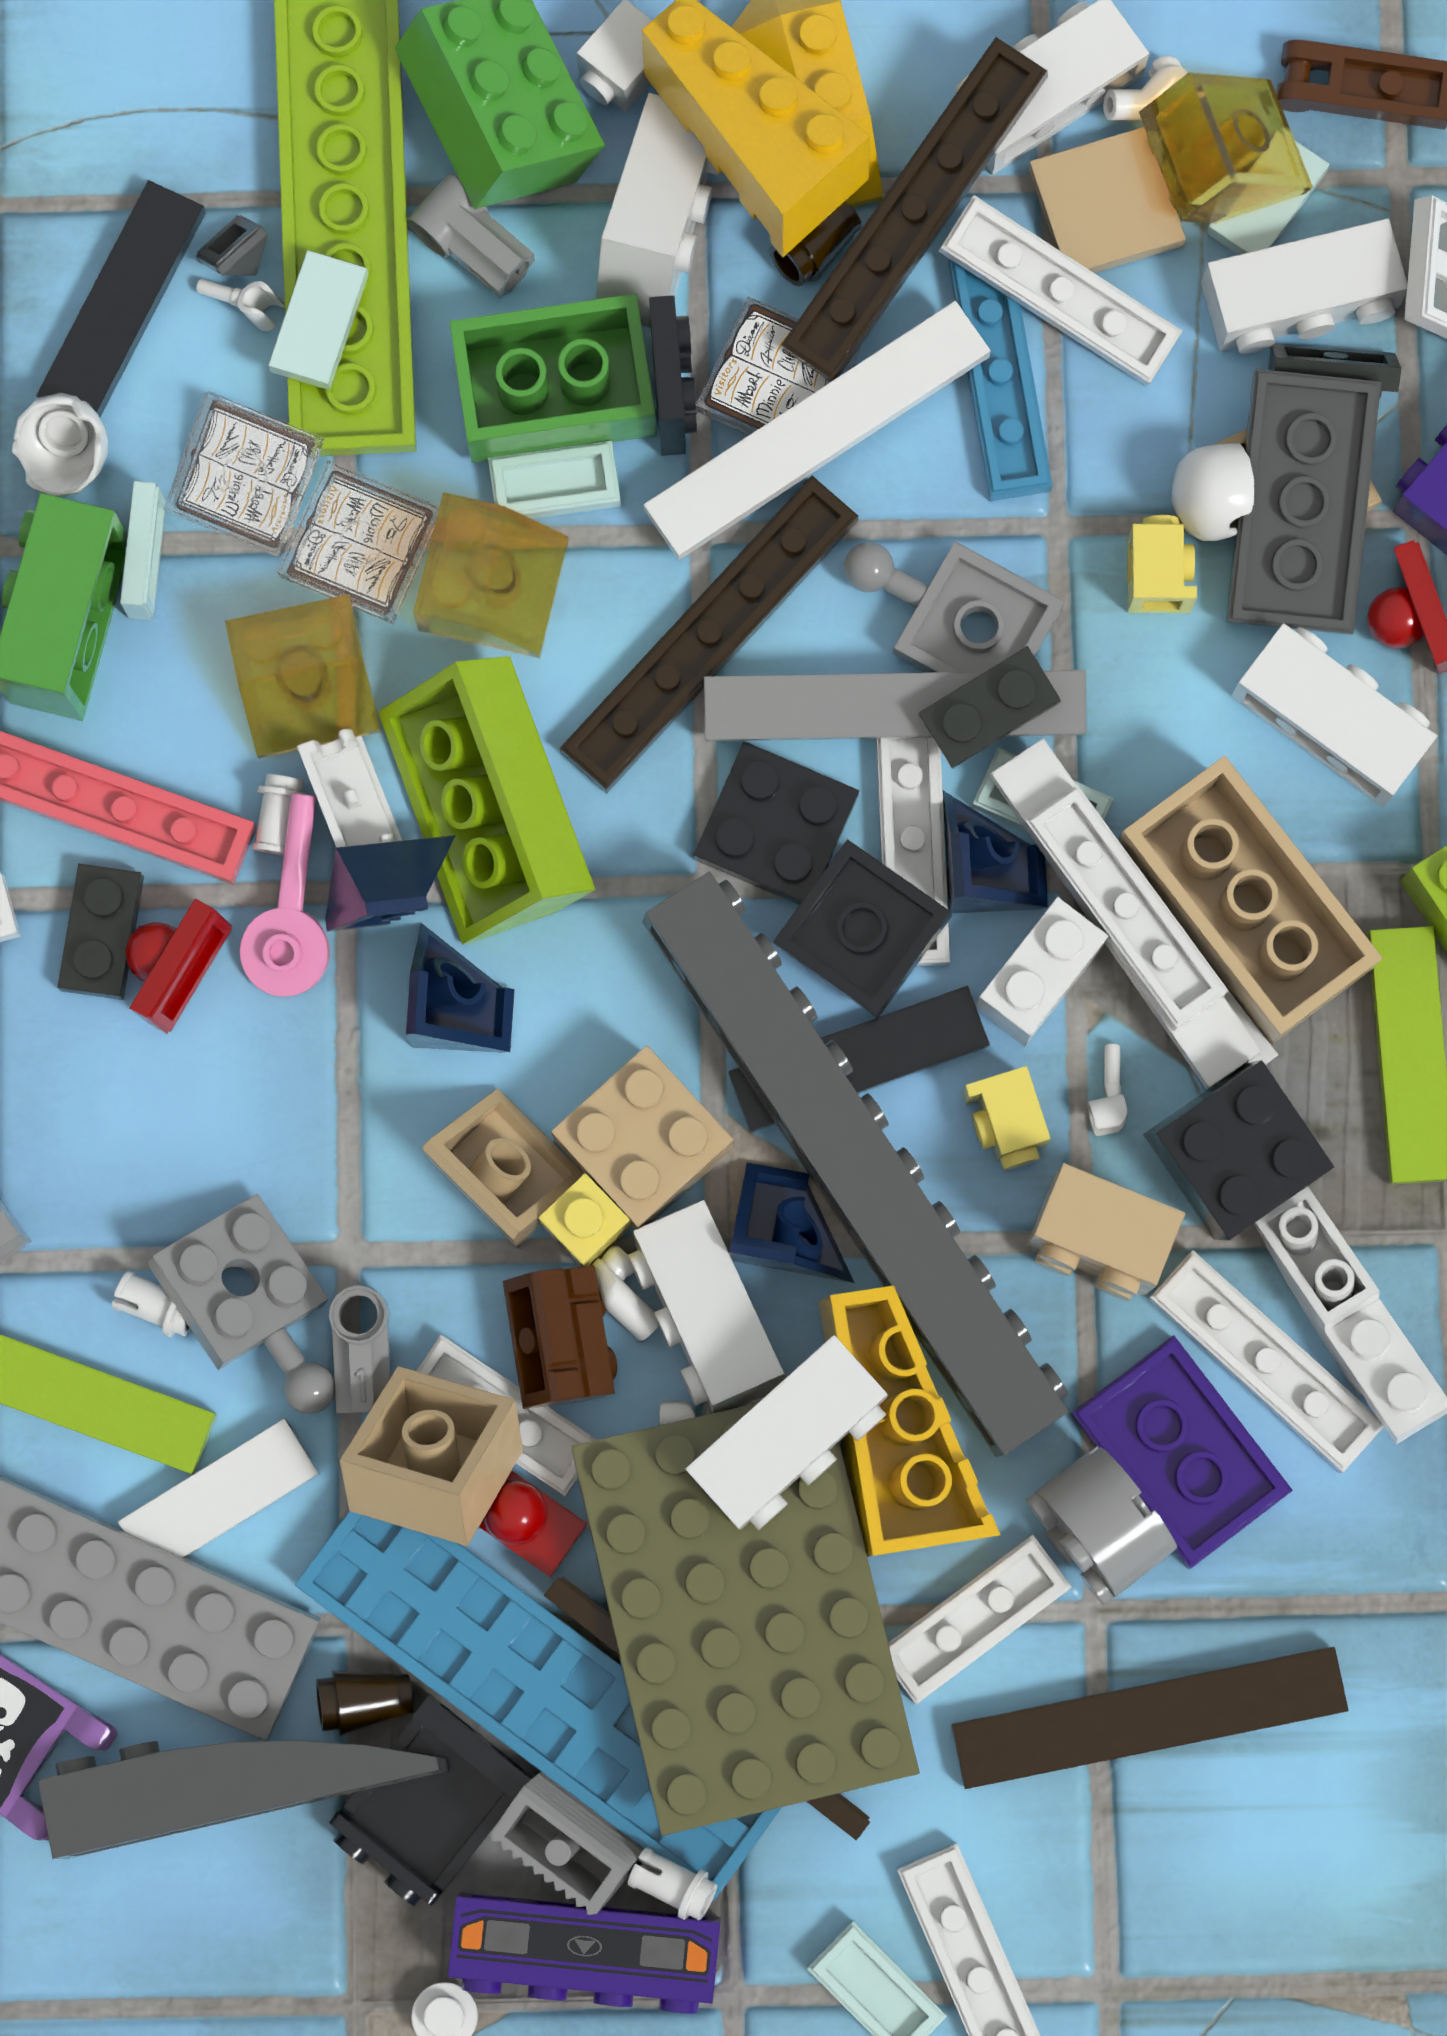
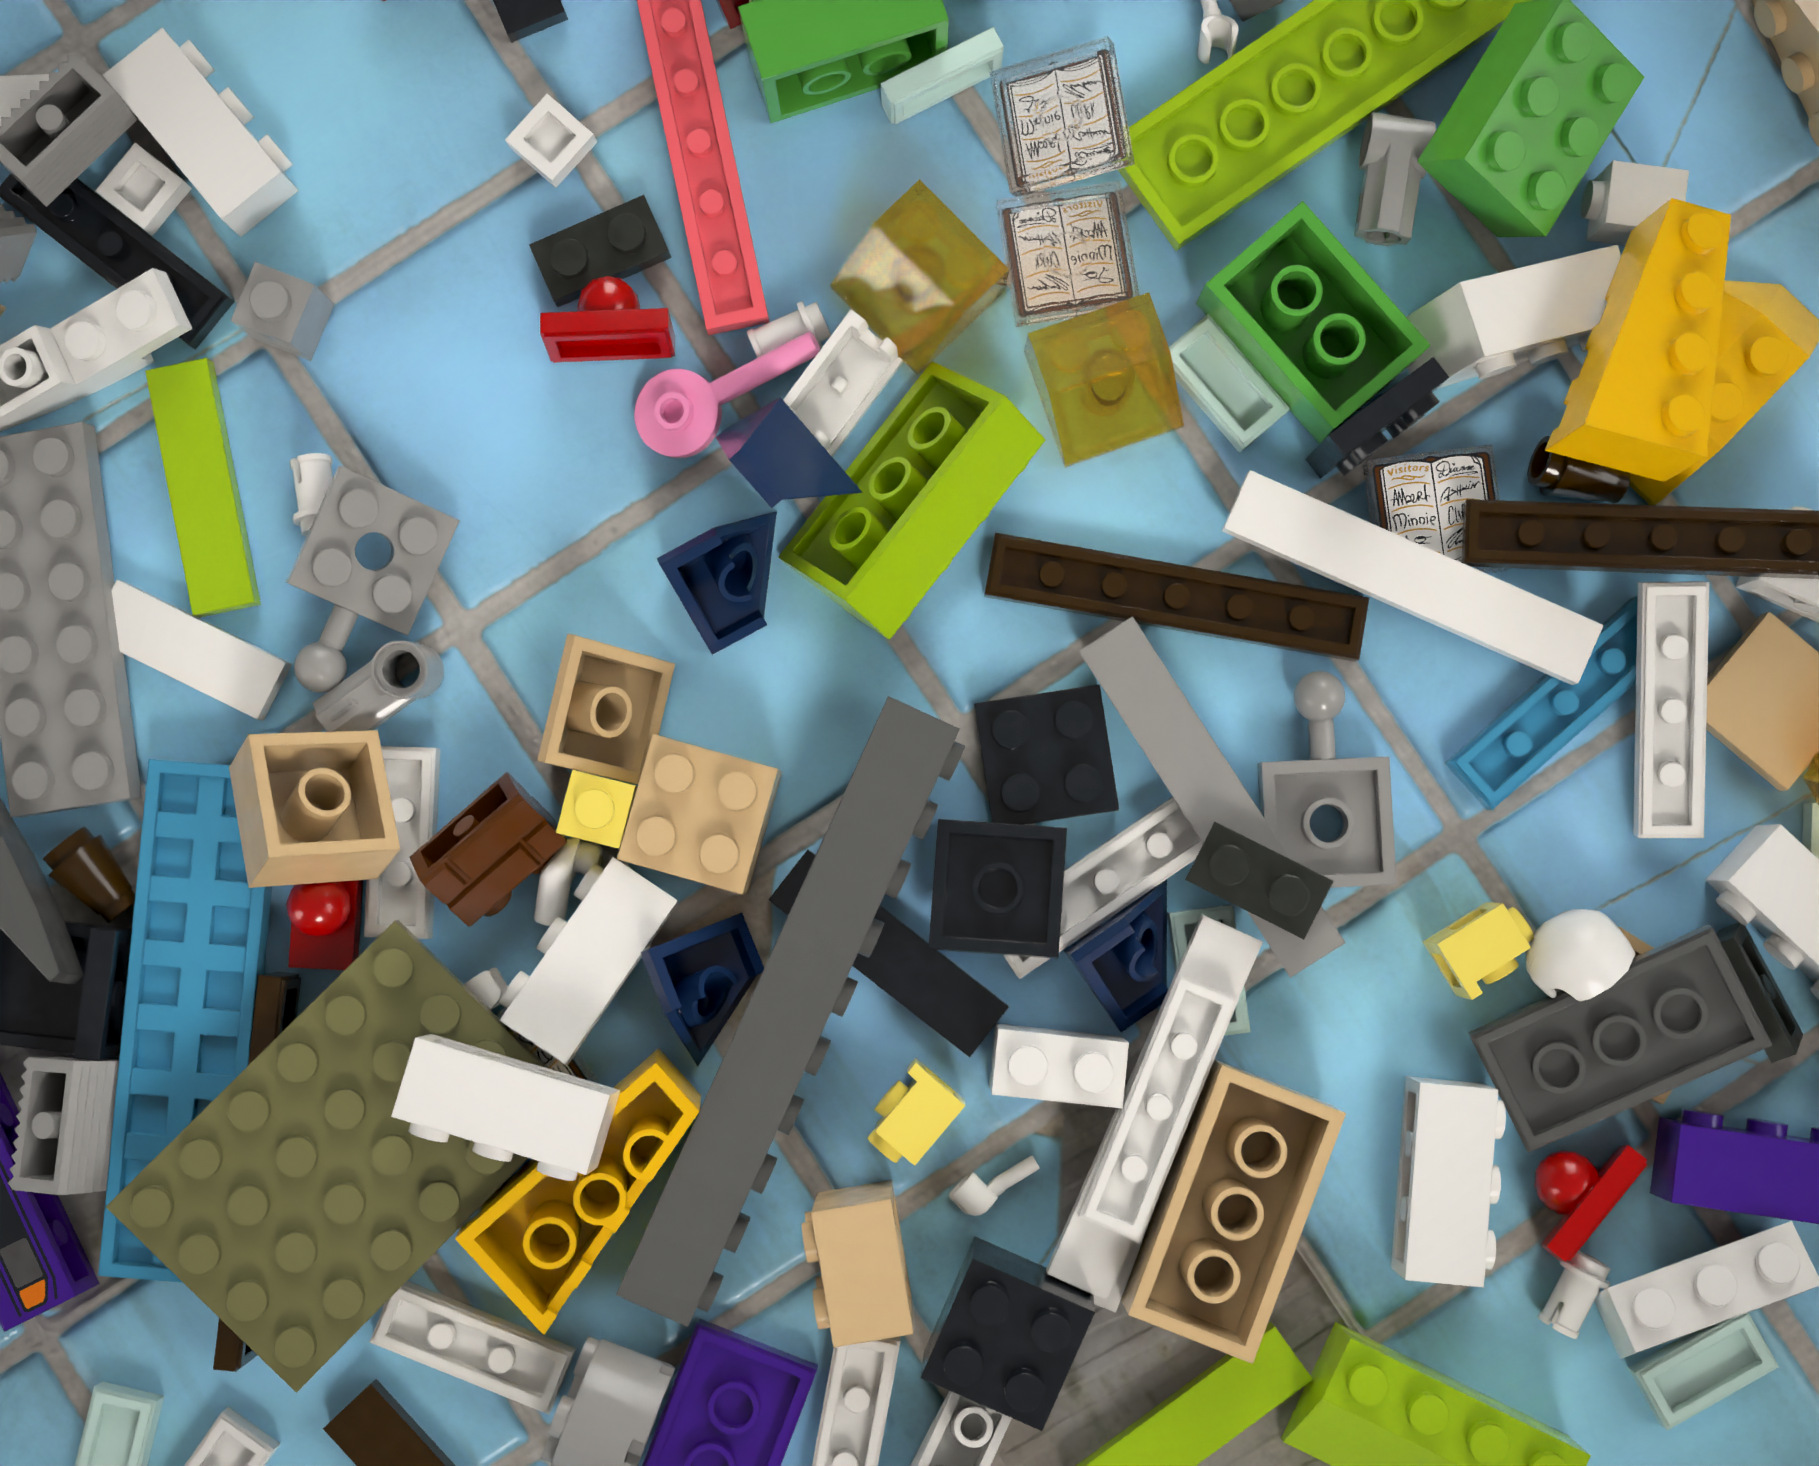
camera: 60 degrees right, 5 degrees up
(318, 320) = (1234, 92): light aqua tile -> none
(673, 1884) = (86, 1240): white pin -> none

